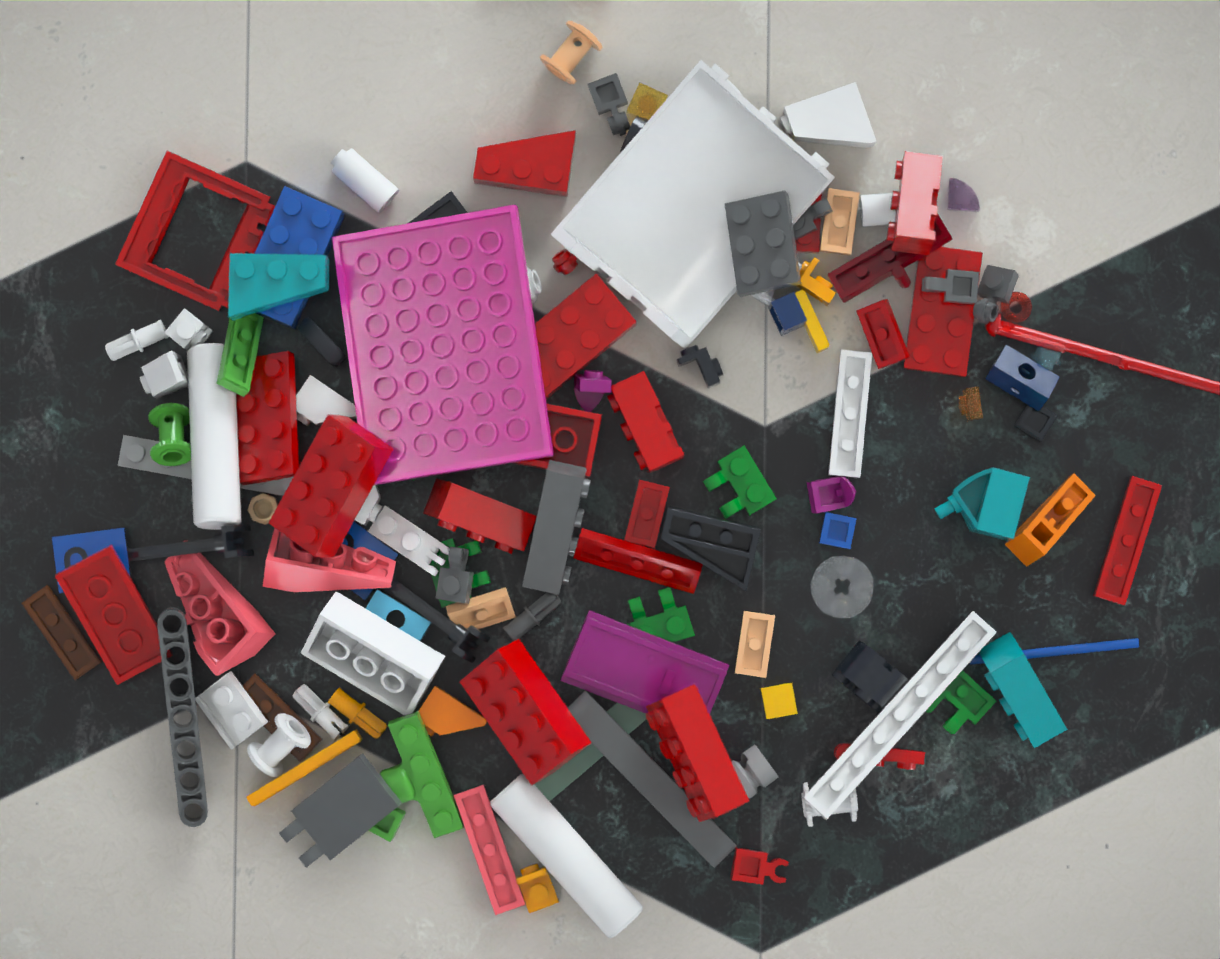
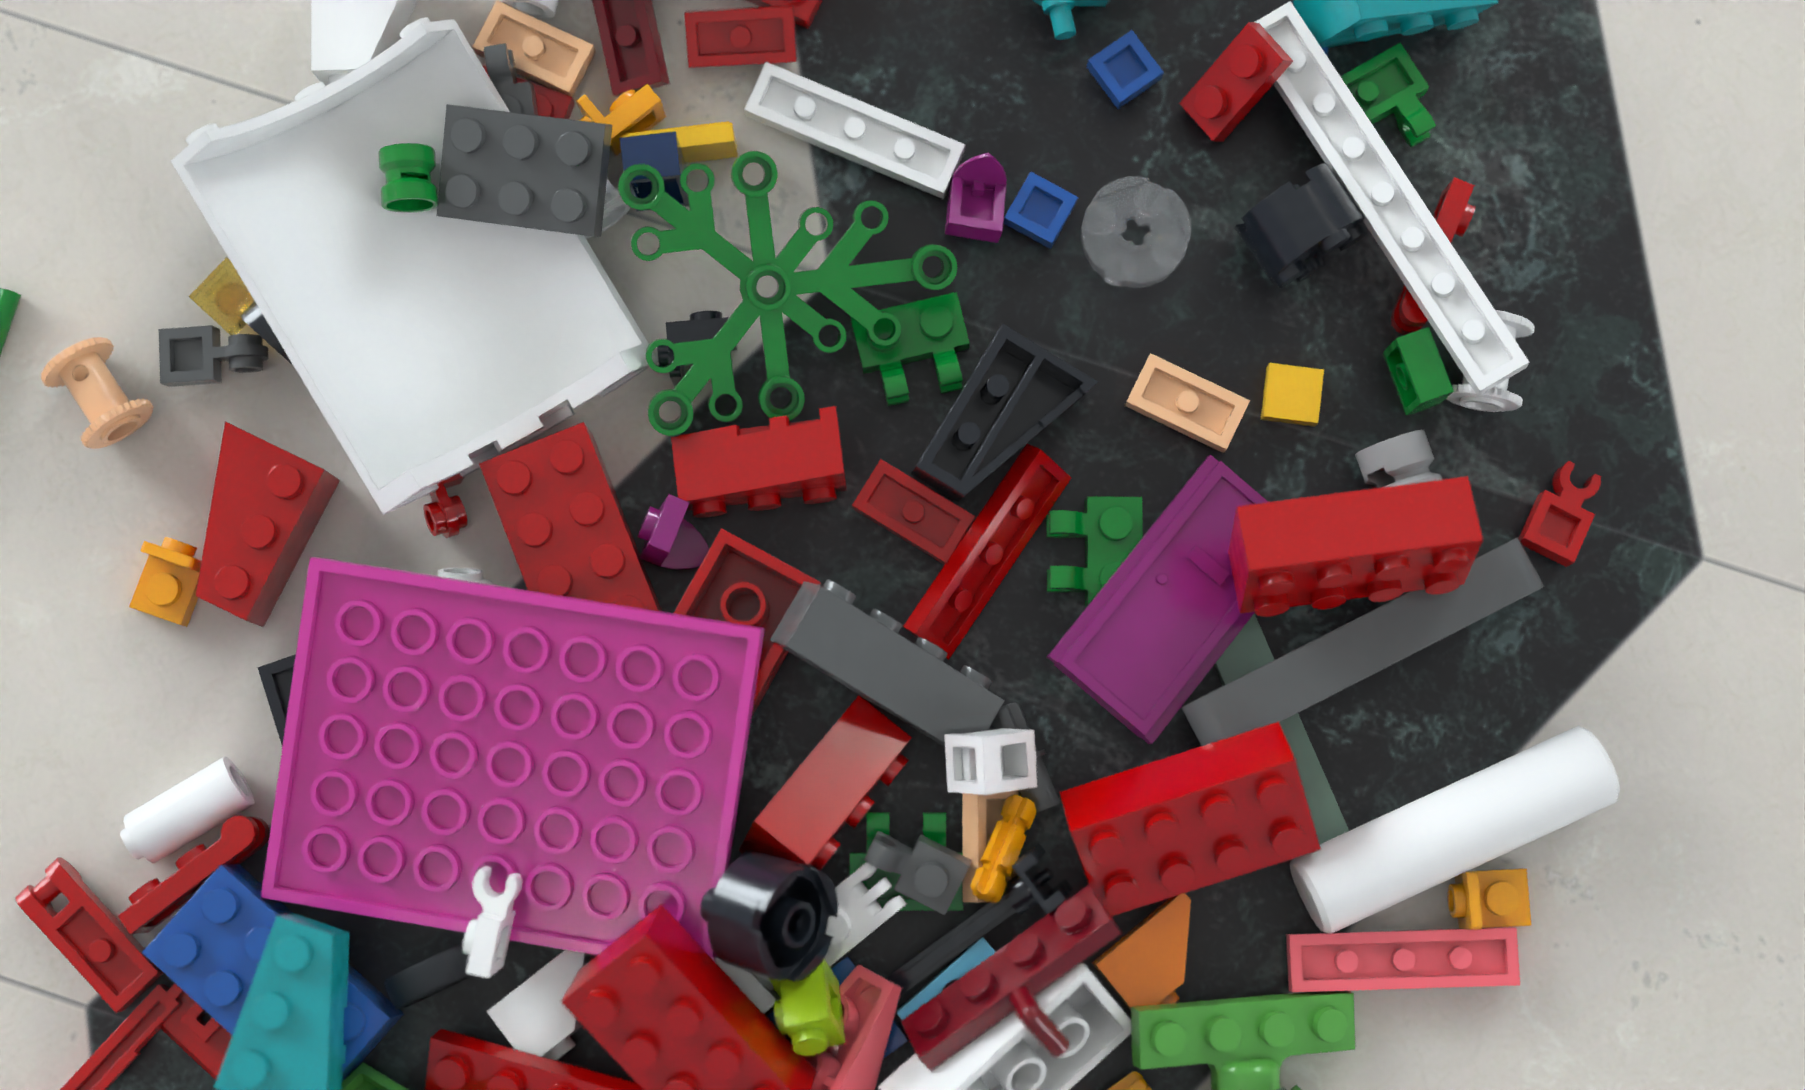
camera: 75 degrees left, 5 degrees down
(283, 151) = (89, 936): none -> red plate
(334, 196) = (158, 901): none -> red plate
(350, 364) = (489, 935): none -> white plate
(366, 541) = (810, 1011): none -> lime brick
(405, 507) = (770, 916): none -> black brick
(411, 643) = (1010, 982): none -> dark red plate
(480, 618) = (1003, 848): none -> light orange axle
(482, 126) = (168, 581): none -> light orange bracket
(523, 597) = (991, 761): none -> white brick
(746, 181) = (408, 177): none -> green wheel
(757, 430) = (832, 278): none -> green plant
(811, 764) = (1417, 371): none -> green piece
(933, 552) = (1124, 69): none -> blue plate
(942, 616) = (1236, 81): none -> red plate

